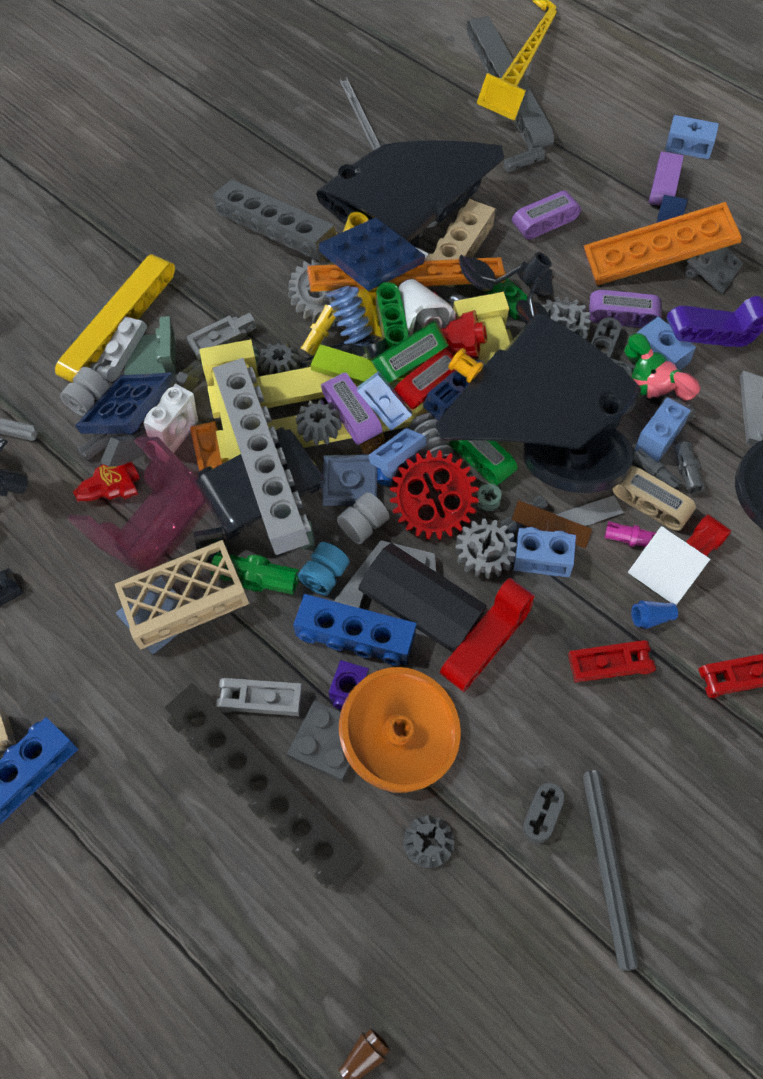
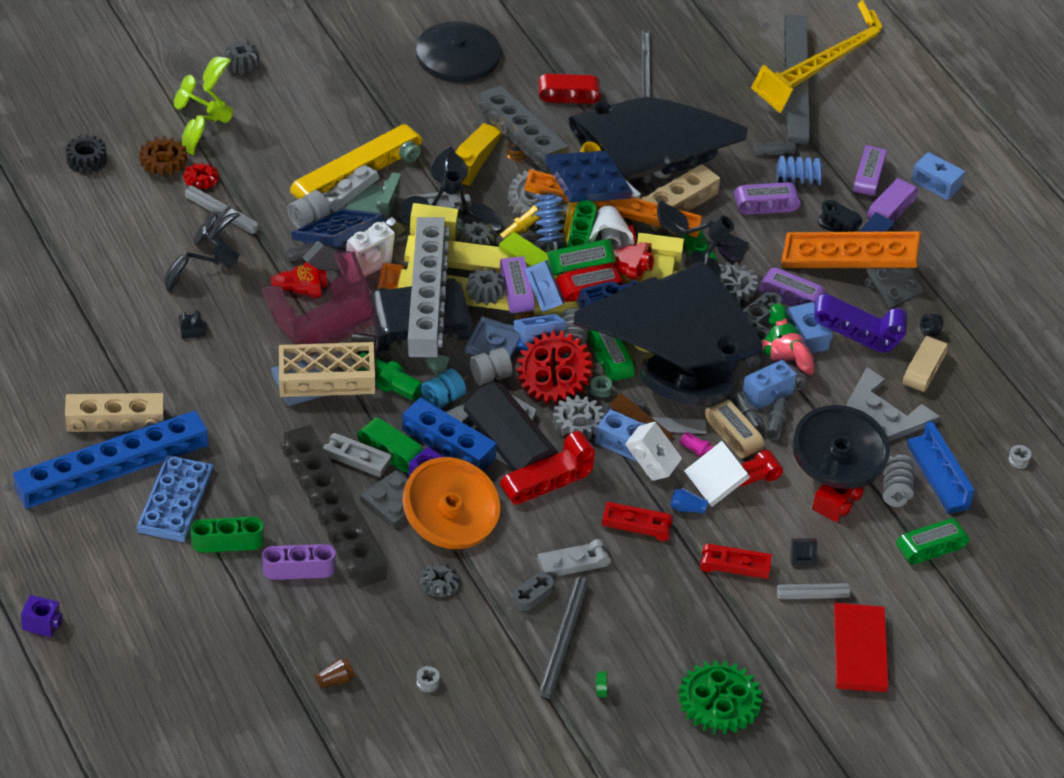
camera: 15 degrees right, 15 degrees down
(64, 850) = (175, 498): none -> medium blue tile
(131, 885) = (227, 534): none -> green beam
(166, 283) = (409, 151): none -> sand green bush
(171, 157) = (458, 51): none -> black dish
(222, 292) = (451, 171): none -> black plant
(233, 264) = (477, 149): none -> yellow slope
(235, 890) = (298, 561): none -> medium lavender beam
(274, 247) = (514, 152): none -> clear orange tile
(294, 666) = (391, 441): none -> green beam
(298, 160) = (569, 88): none -> red beam
(465, 365) = (619, 277): light orange bush -> none
(469, 1008) = (430, 672): none -> light grey bush
(562, 173) = (799, 170): none -> medium blue piece
(565, 745) = (574, 559): none -> light grey plate
(592, 566) = (653, 451): none -> white brick
(626, 152) = (870, 170): none -> medium lavender beam
(628, 215) = (839, 219): none -> black piece
(690, 926) = (602, 684): none -> green tile

